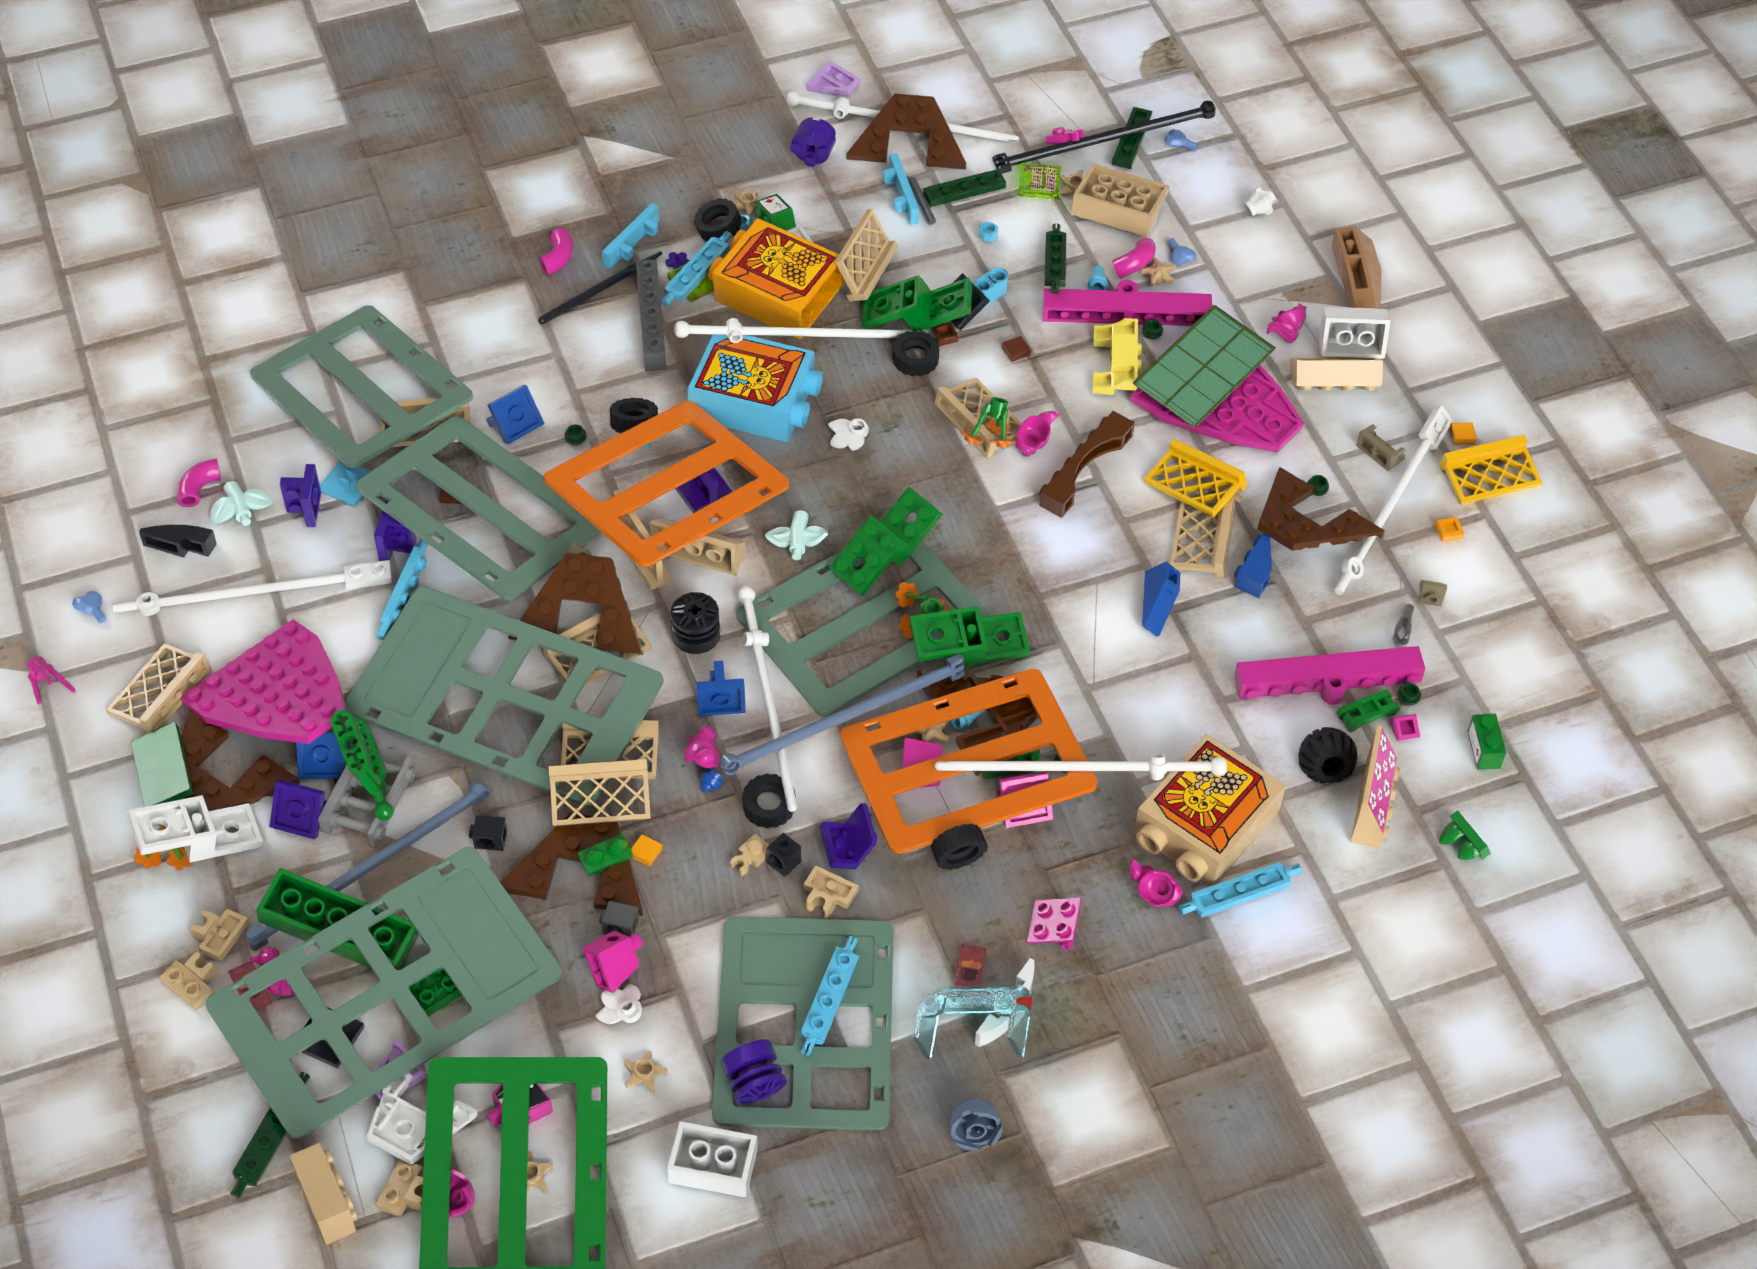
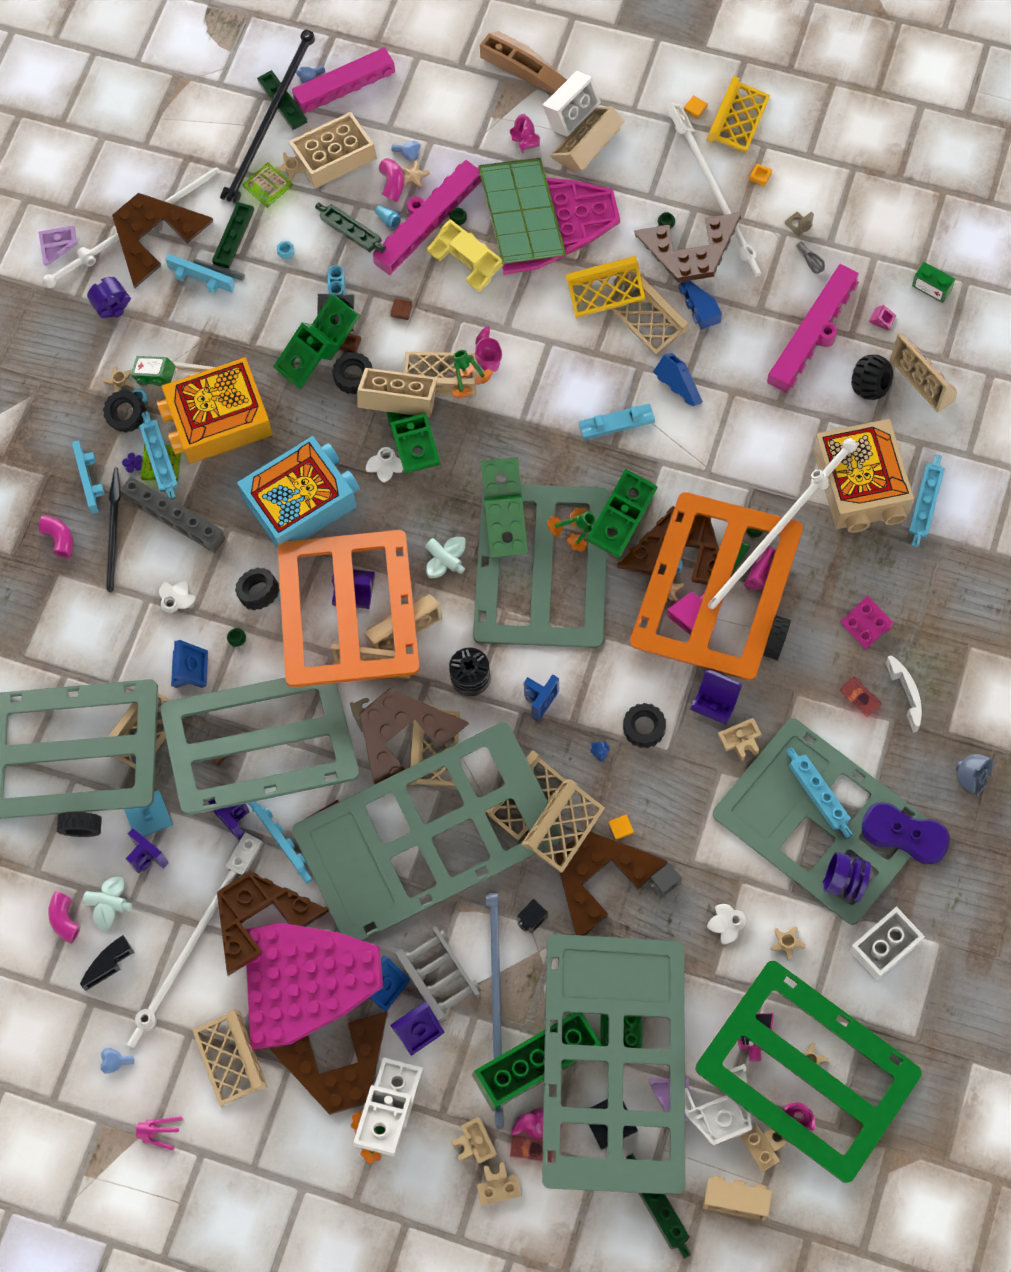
camera: 45 degrees left, 15 degrees up
(162, 766) = (308, 1097): tile -> none
(292, 432) = (79, 824): none -> black tyre
(319, 598) = (247, 898): none -> reddish brown wing
(372, 782) = (440, 965): green piece -> none
(575, 368) = (177, 594): none -> white plate
(605, 854) = (610, 855): green tile -> none
(612, 959) = (696, 904): dark pink torso -> none
(703, 749) = (576, 738): dark pink hair -> none
(735, 330) = (253, 472): white bar -> none
(751, 852) = (674, 763): tan plate -> none
(756, 640) = (513, 643): white bar -> none
(783, 854) = (695, 745): black brick -> none
(859, 1121) = (920, 838): none -> dark purple plate
(873, 264) = (251, 343): tan fence -> none
(894, 427) = (410, 434): none -> green bracket
(922, 389) = (396, 392): none -> tan slope
(953, 670) = (608, 728): sand blue hinge -> none
(1004, 1000) = (876, 724): clear light blue windscreen -> none
(1060, 135) = (244, 140): dark pink plate -> none
(1068, 580) = (616, 421): none -> medium azure hinge
(1110, 436) = (546, 371): reddish brown arch -> none
(1155, 886) = (888, 545): dark pink hair -> none
(1198, 165) = (343, 80): none -> dark pink brick
(1260, 202) = (410, 70): white rock -> none
(1368, 710) = (856, 328): green plate -> none
(1379, 449) = (668, 163): dark tan hinge -> none
(1409, 694) = (863, 296): dark green plate -> none
(1460, 829) = (980, 347): green tile -> none

